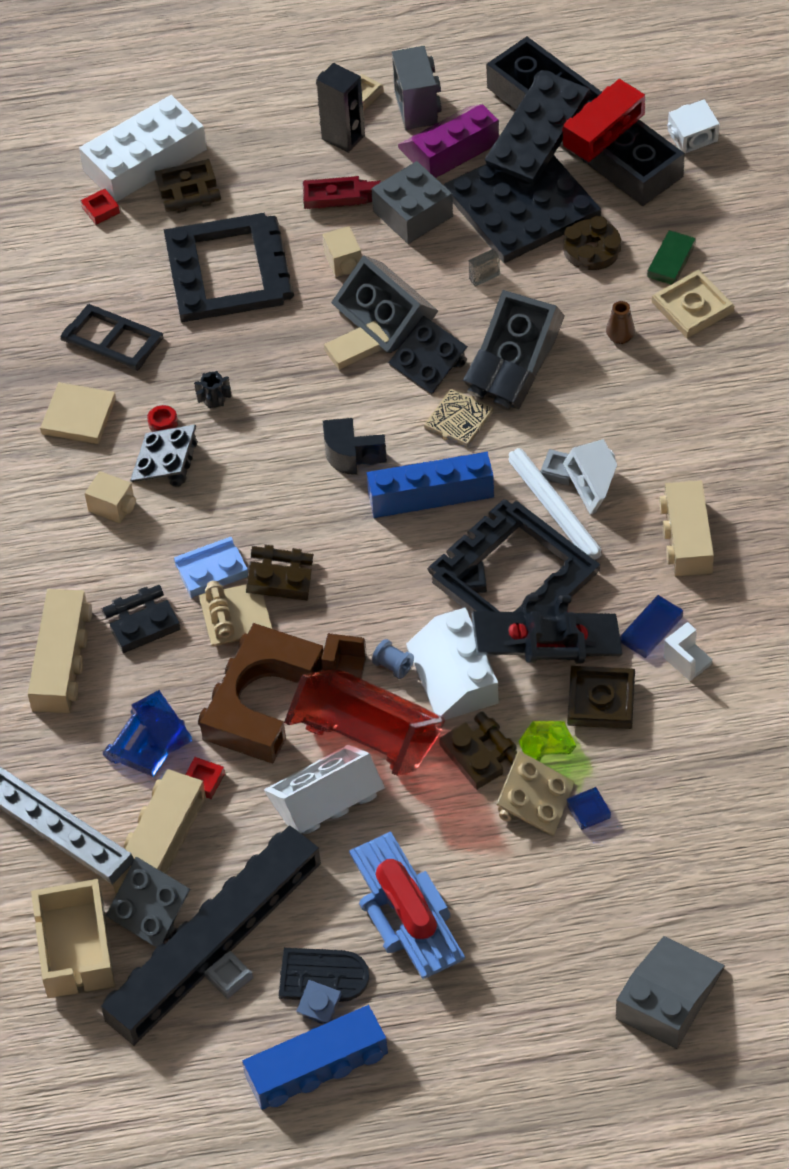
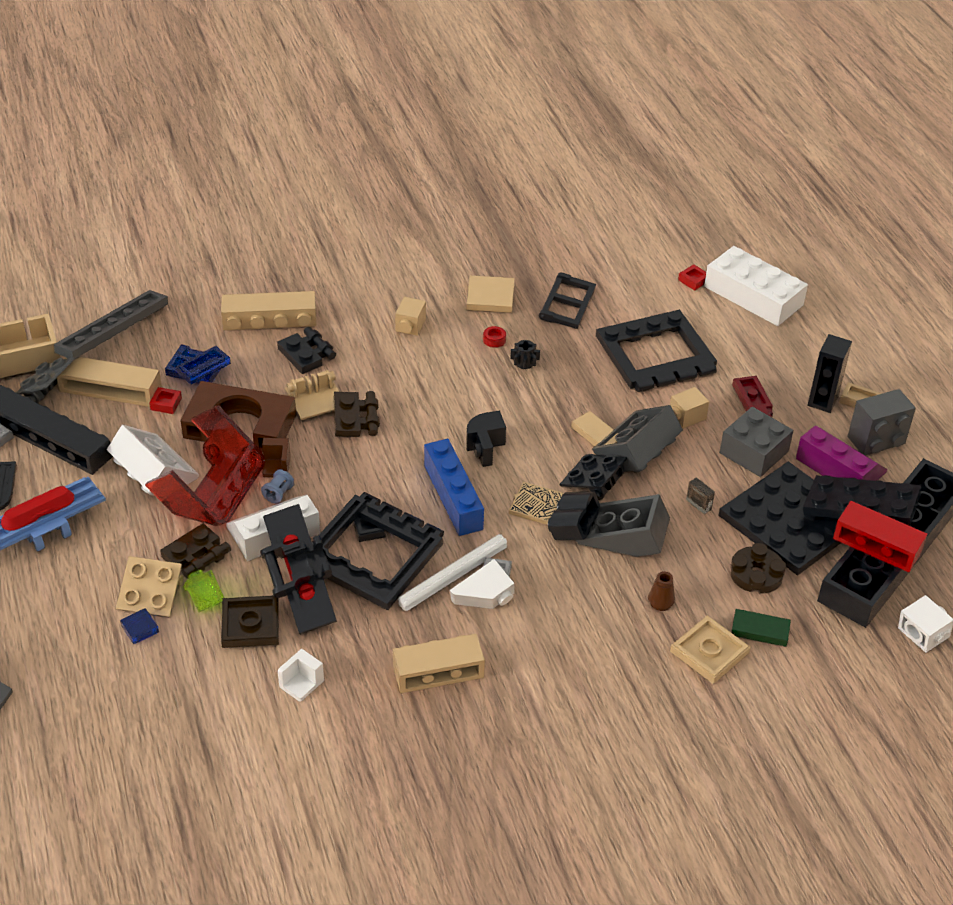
camera: 75 degrees right, 10 degrees down
(166, 454) = (447, 335): black hinge -> none
(187, 179) = (735, 316): dark brown plate -> none
(211, 563) = (359, 378): light blue plate -> none
(651, 626) = (333, 651): clear blue tile -> none

